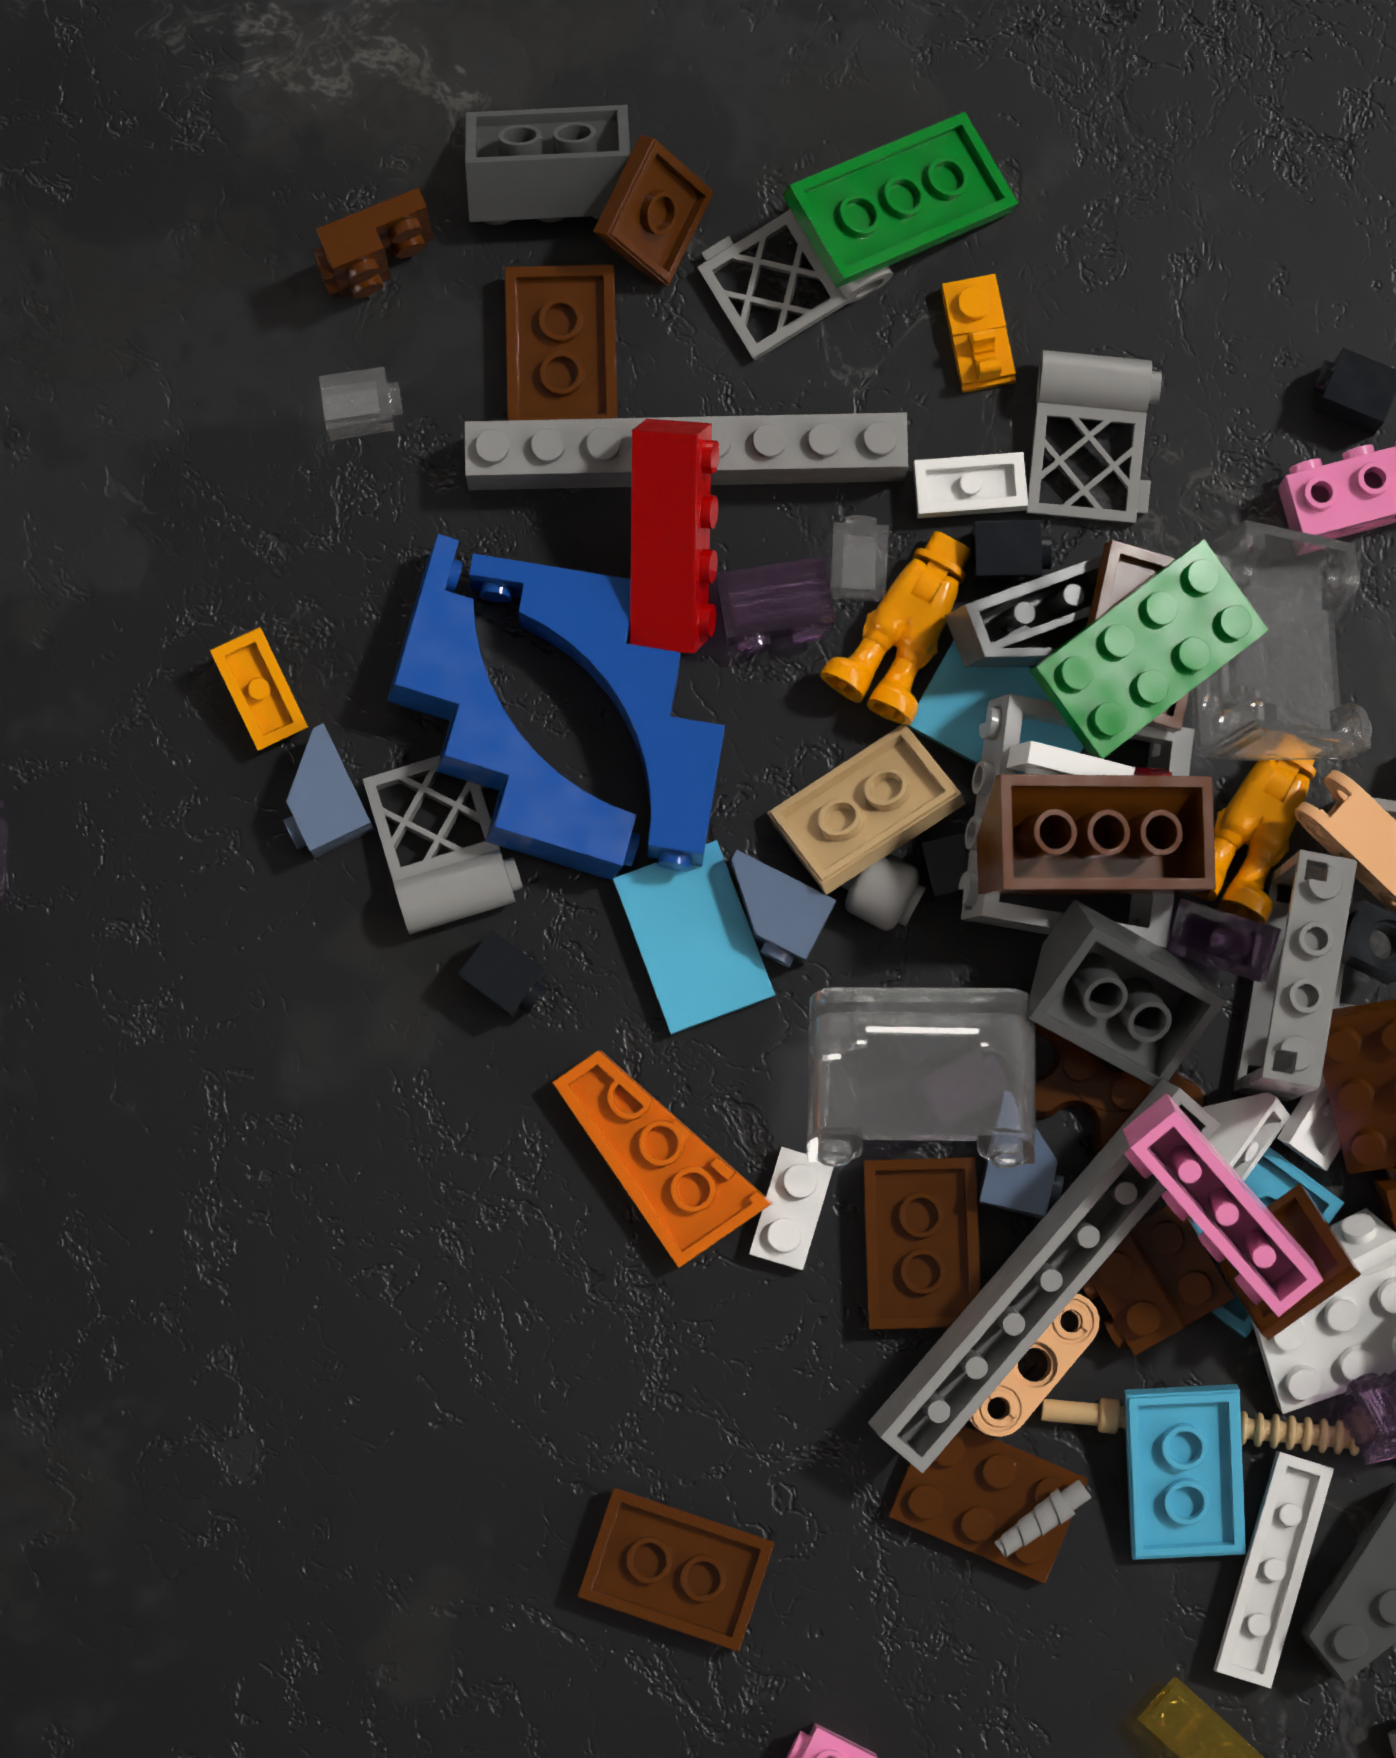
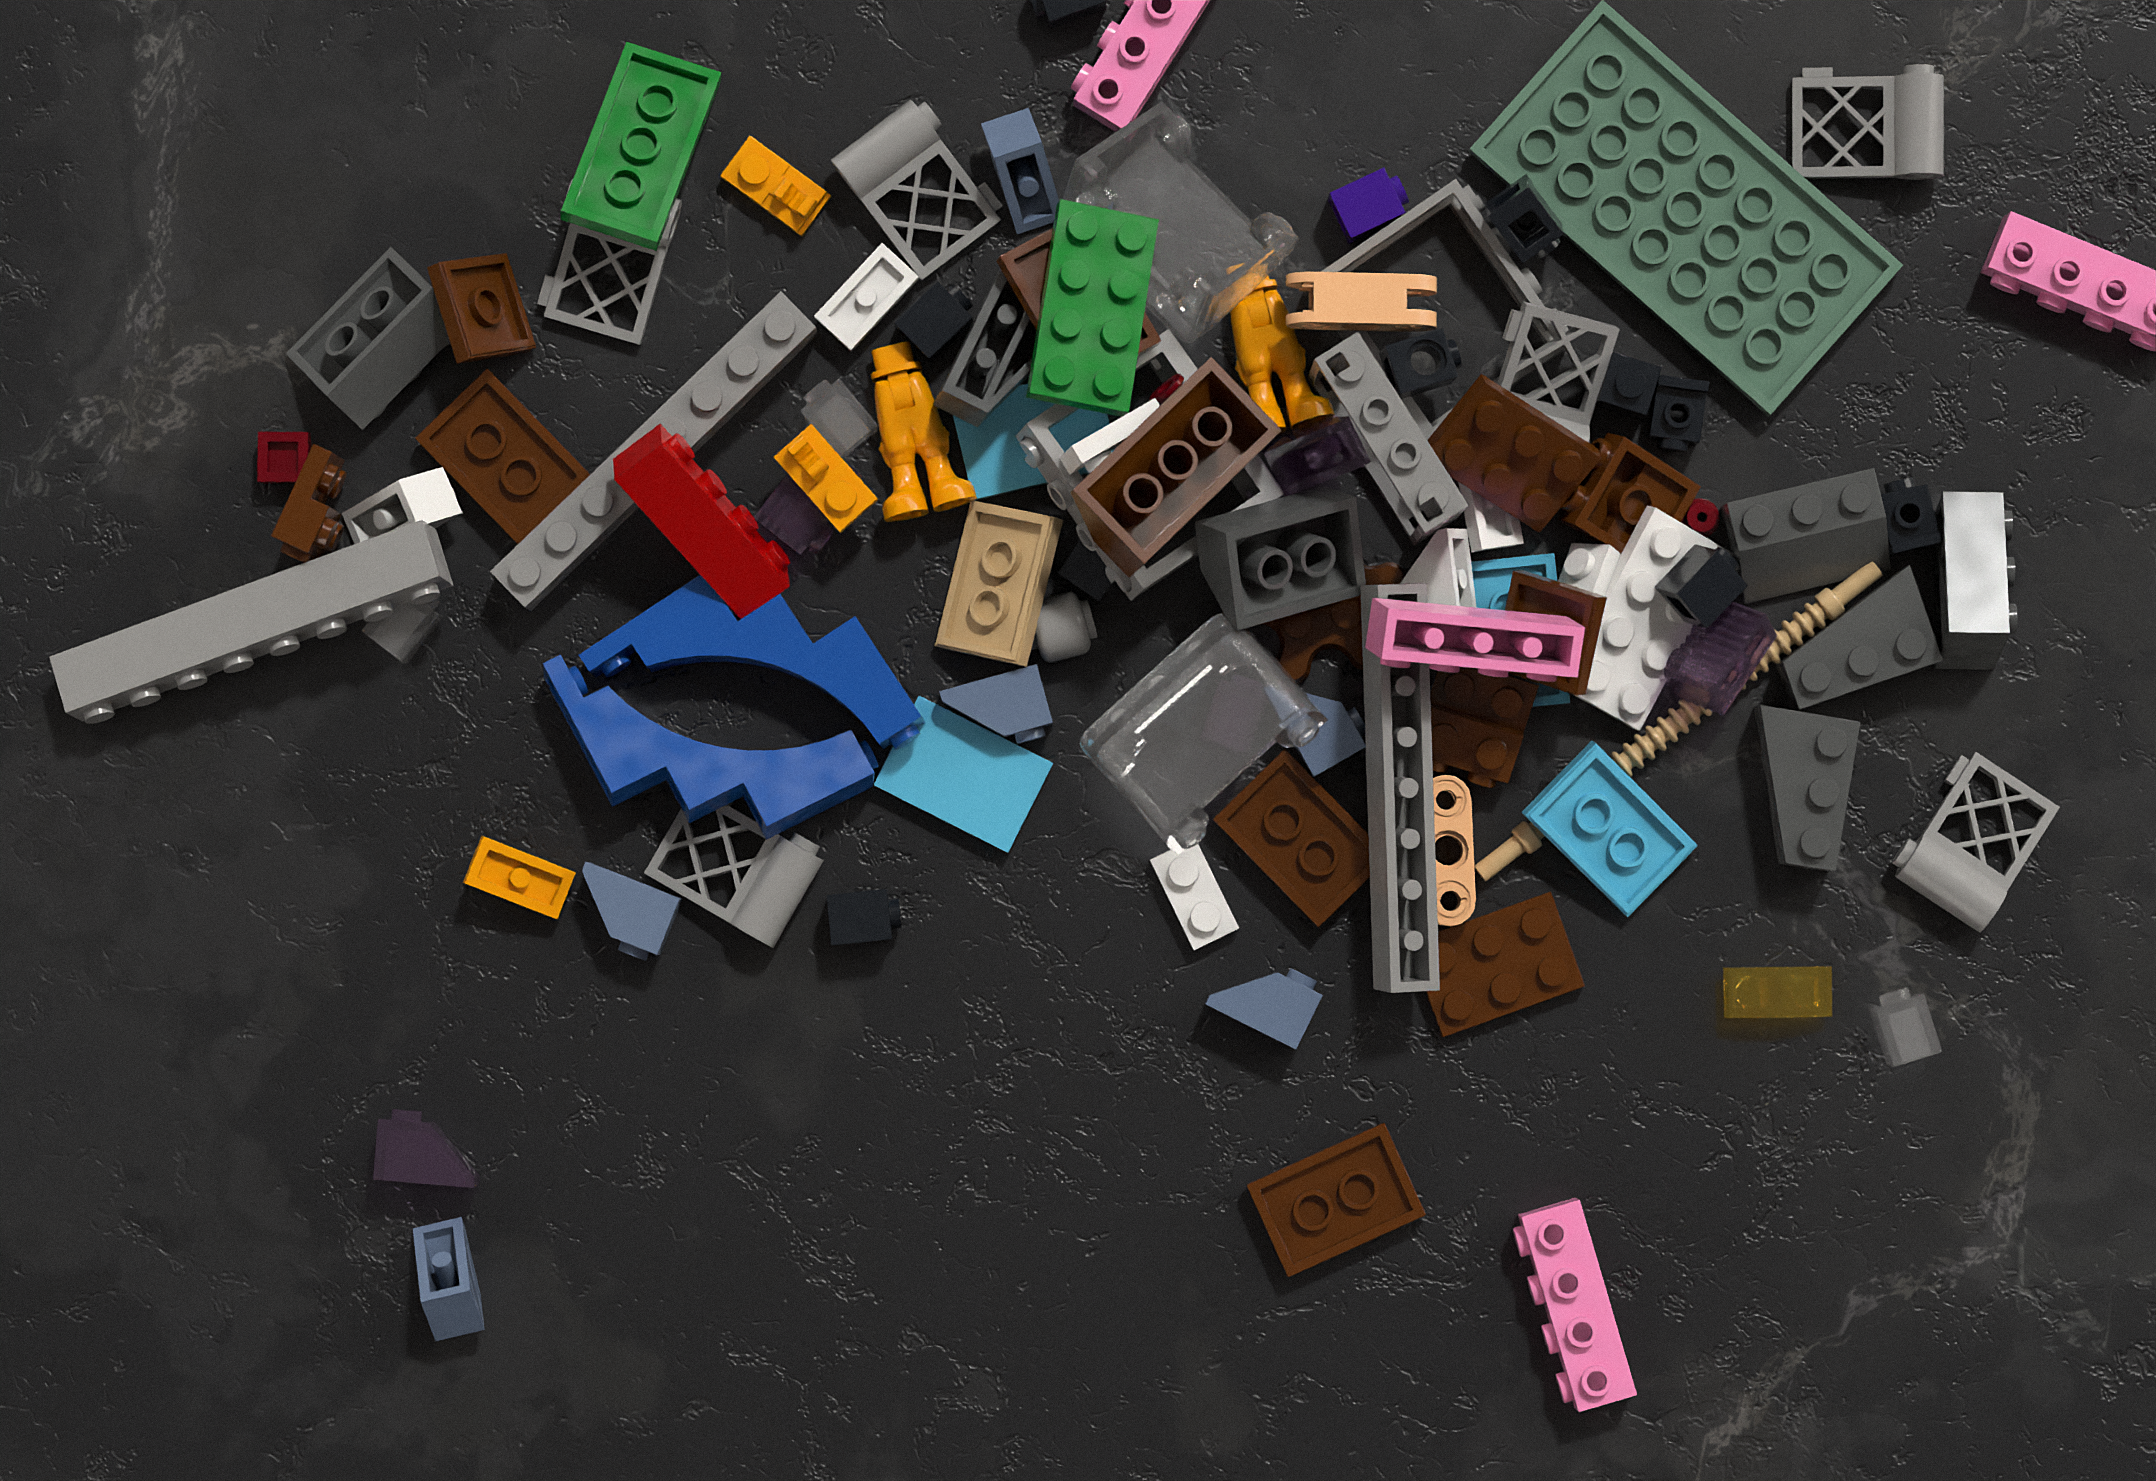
camera: 40 degrees left, 5 degrees up
(238, 289) = (251, 622): none -> light grey brick
(383, 181) = (281, 456): none -> dark red plate
(440, 315) = (406, 501): none -> white slope
(665, 1168) = (1080, 944): orange wing -> none
(771, 1357) = (1272, 1005): none -> sand blue slope
(804, 594) = (825, 478): none -> light orange plate
(1044, 1517) = (1544, 942): light grey animal -> none
(1190, 495) = (1022, 169): none -> sand blue slope
(1273, 1569) = (1725, 838): white plate -> none

